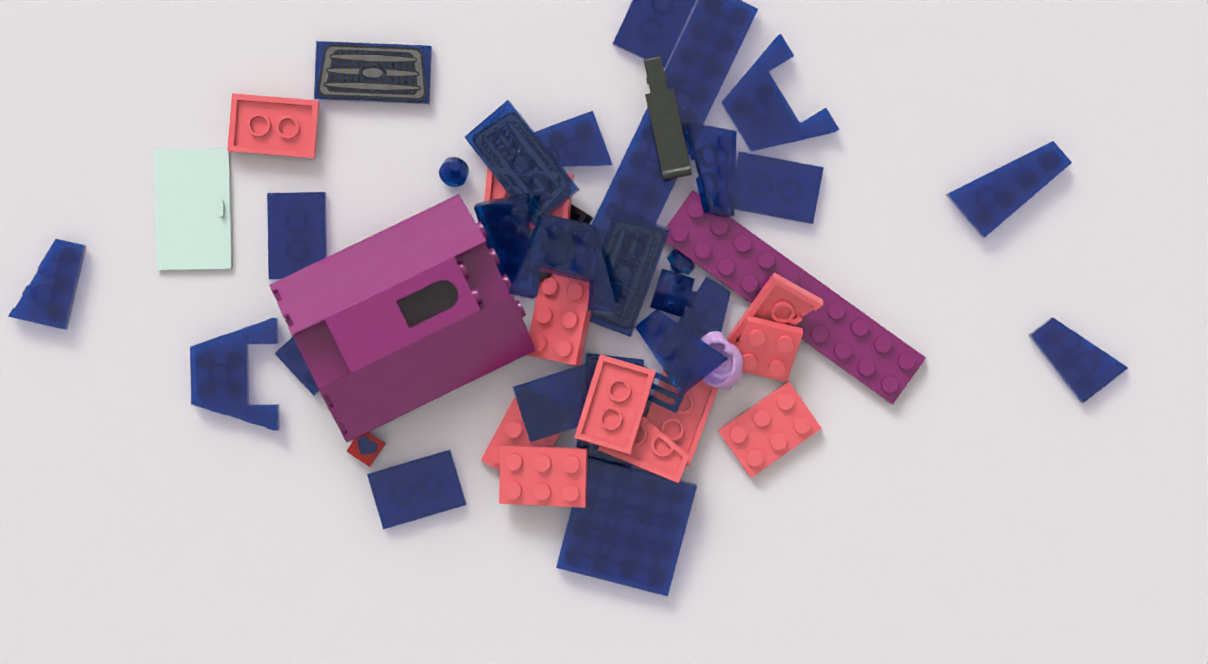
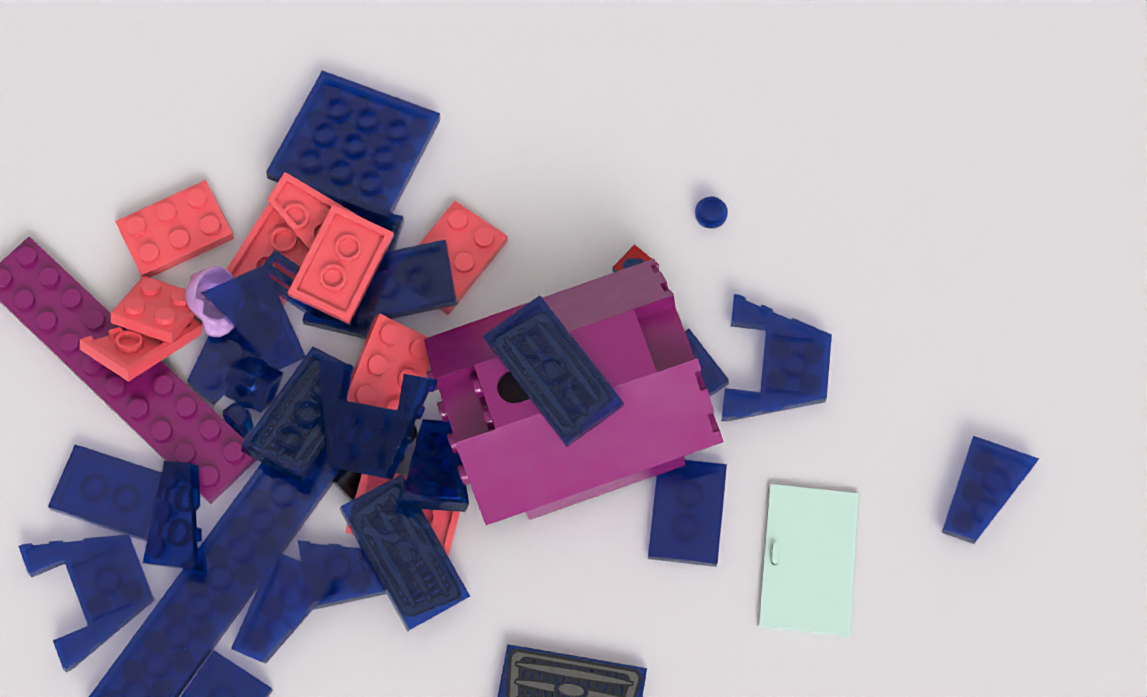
camera: 170 degrees left, 20 degrees down
(273, 126) = (700, 641): coral plate -> none
(307, 507) = (711, 212): none -> clear blue plate
(411, 309) = (553, 371): none -> clear blue tile
(416, 489) = (584, 216): clear blue tile -> none
(454, 171) = (489, 559): clear blue tile -> none
(543, 476) = (436, 203): coral plate -> none
(616, 108) = (280, 605): none -> clear blue wing
(665, 122) = (223, 580): pearl dark grey piece -> none

